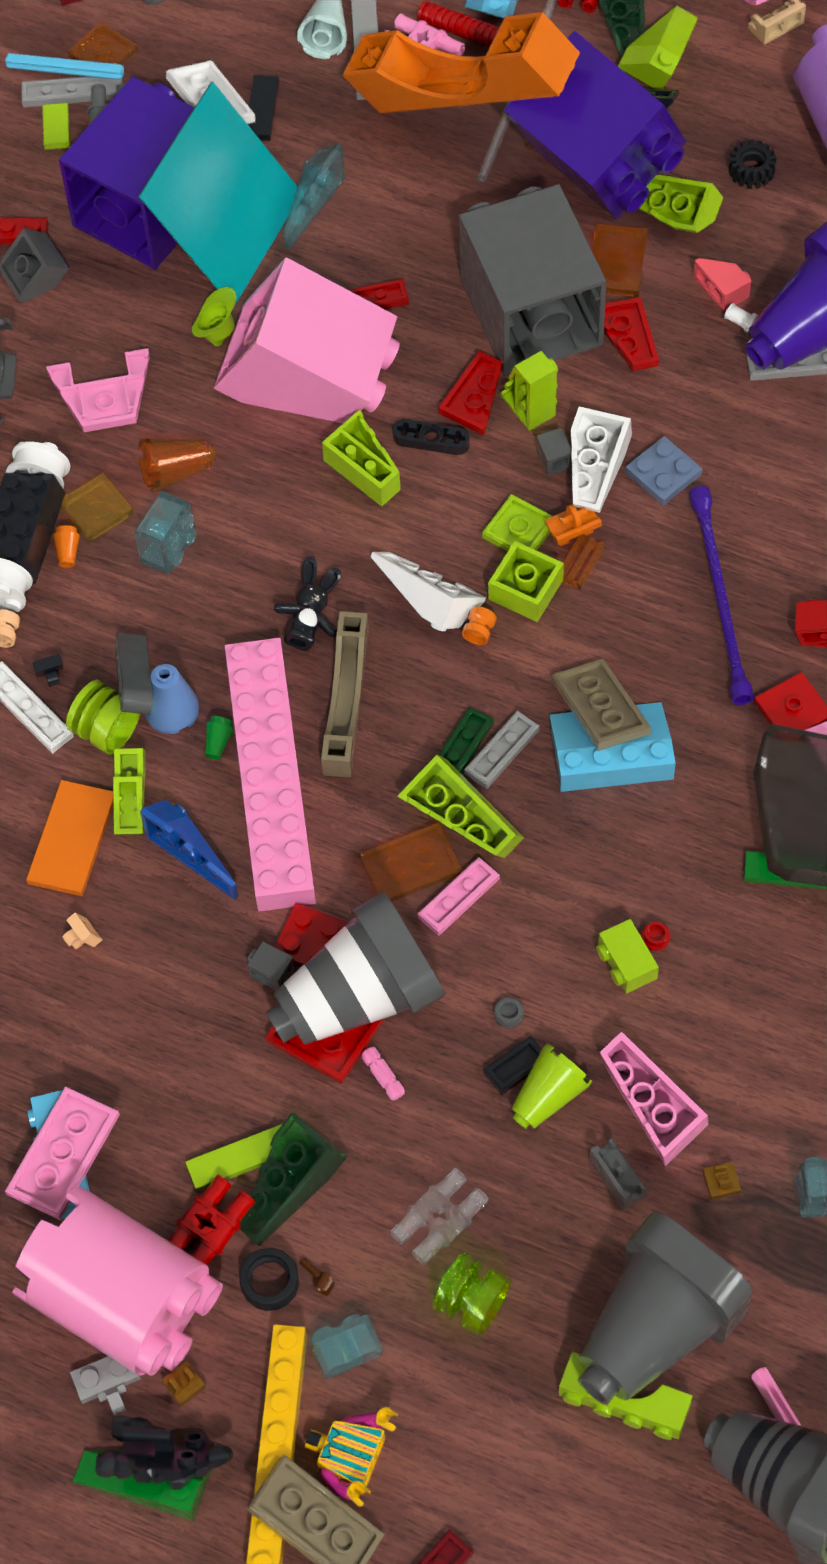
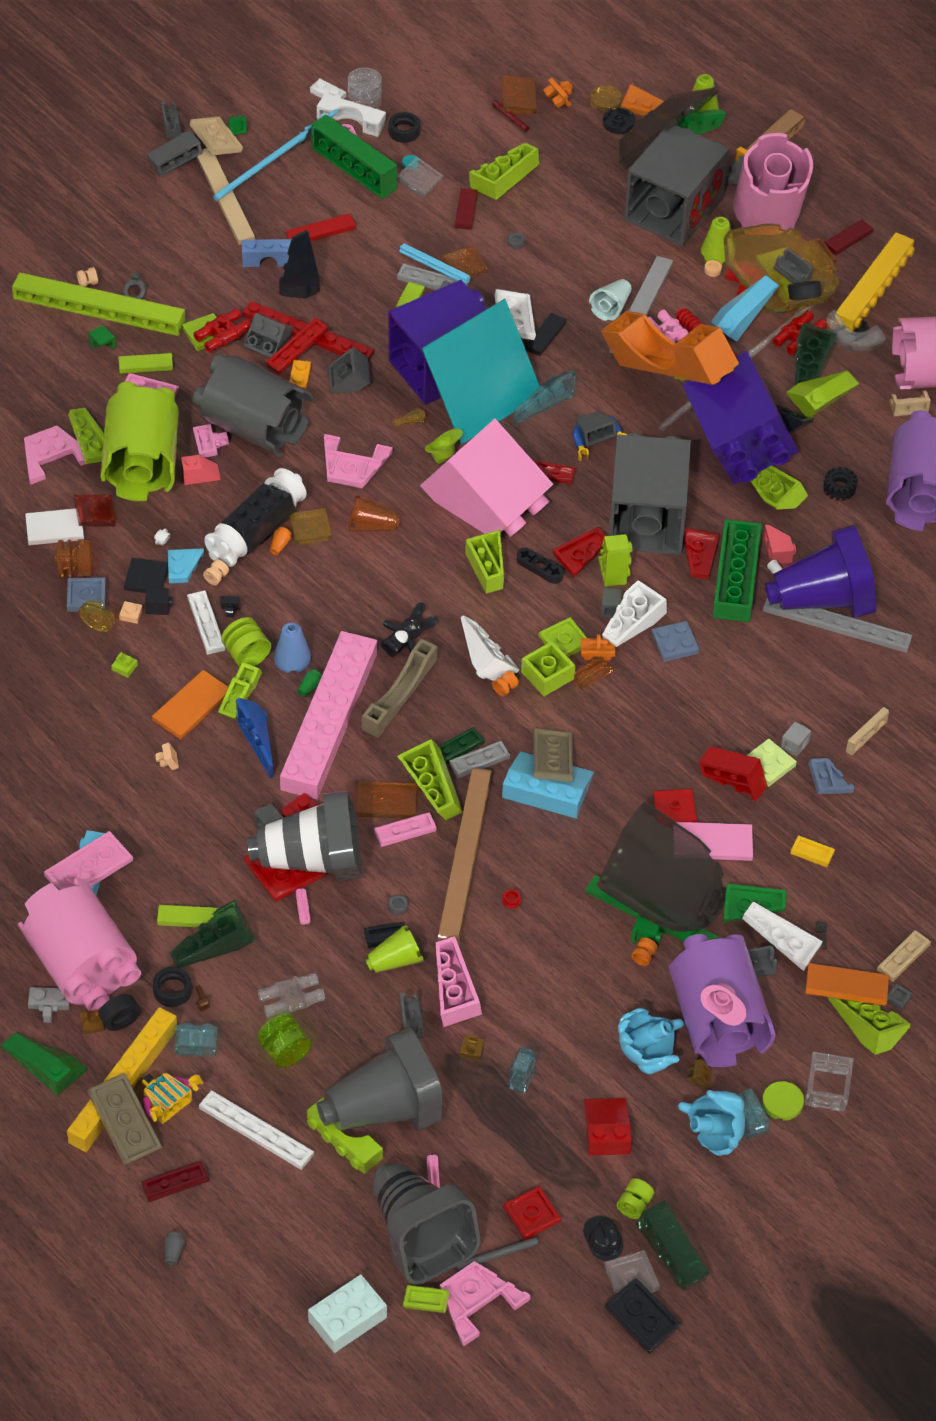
camera: 20 degrees right, 10 degrees down
(133, 673) = (272, 626): dark grey beam -> none
(153, 292) = (413, 417): none -> clear yellow cone
(160, 1453) = (54, 1044): black shield -> none
(165, 532) = (342, 555): clear light blue brick -> none
(205, 1211) = (154, 944): red pin -> none
(220, 1356) = (119, 1012): none -> black tyre
(401, 215) = (592, 430): none -> dark grey torso
(498, 1443) = (256, 1130): none -> white tile
(562, 904) = (465, 854): none -> medium nougat beam
(620, 257) = (719, 504): clear orange tile -> none
(627, 956) = (486, 901): lime brick -> none
(693, 339) = (737, 570): none -> green brick
(740, 687) = (647, 782): dark purple hose -> none

